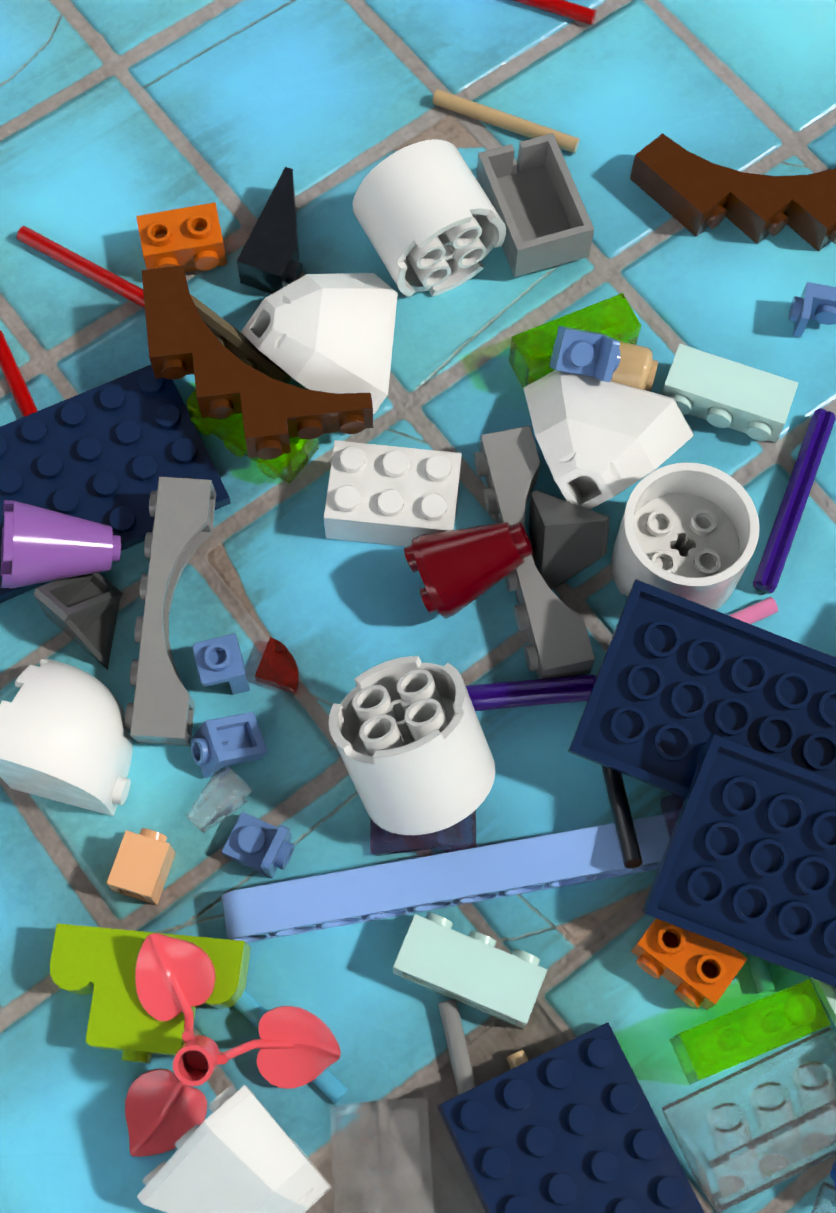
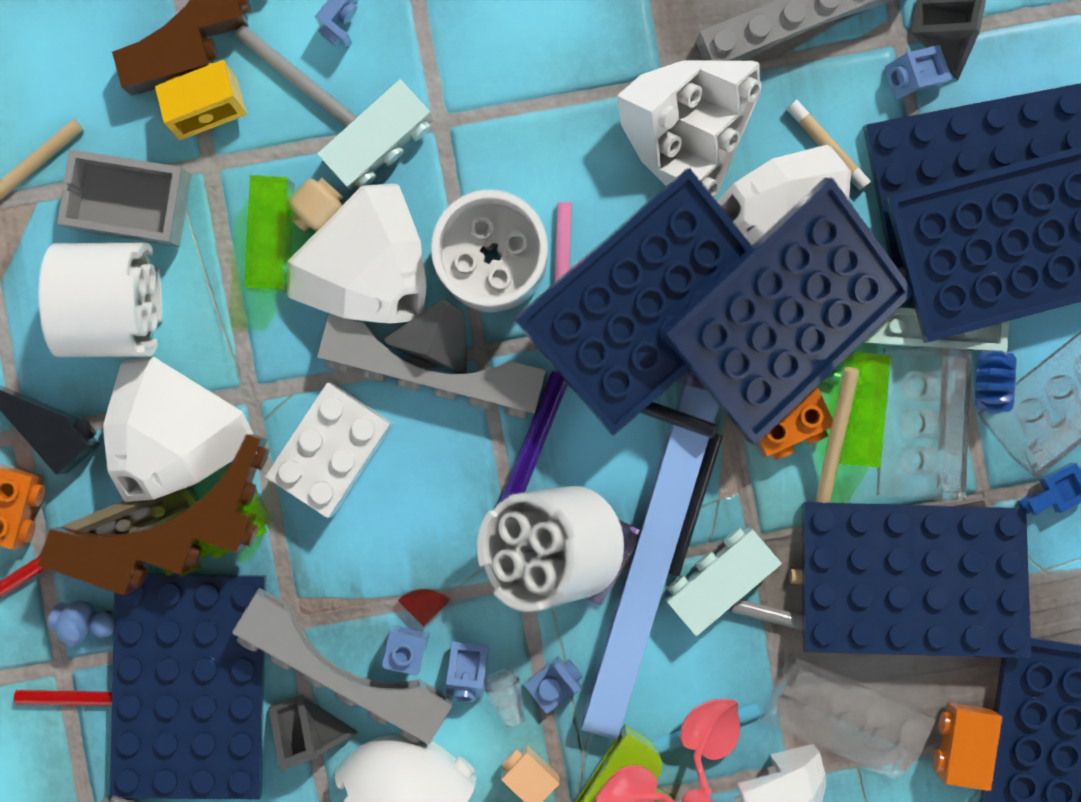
camera: 60 degrees left, 20 degrees up
(52, 545) = (247, 739): medium lavender cone -> none
(97, 349) = (76, 620): none -> medium blue animal
(465, 563) = (421, 429): dark red cone -> none
(537, 899) = (695, 504): none -> black bar
(585, 353) = (291, 238): medium blue bracket -> none
(665, 226) = (200, 100): none -> yellow brick
(706, 1010) = (837, 434): none -> tan bar
(738, 296) = (295, 76): none -> light grey bar
(794, 501) = (489, 135): dark purple axle -> none

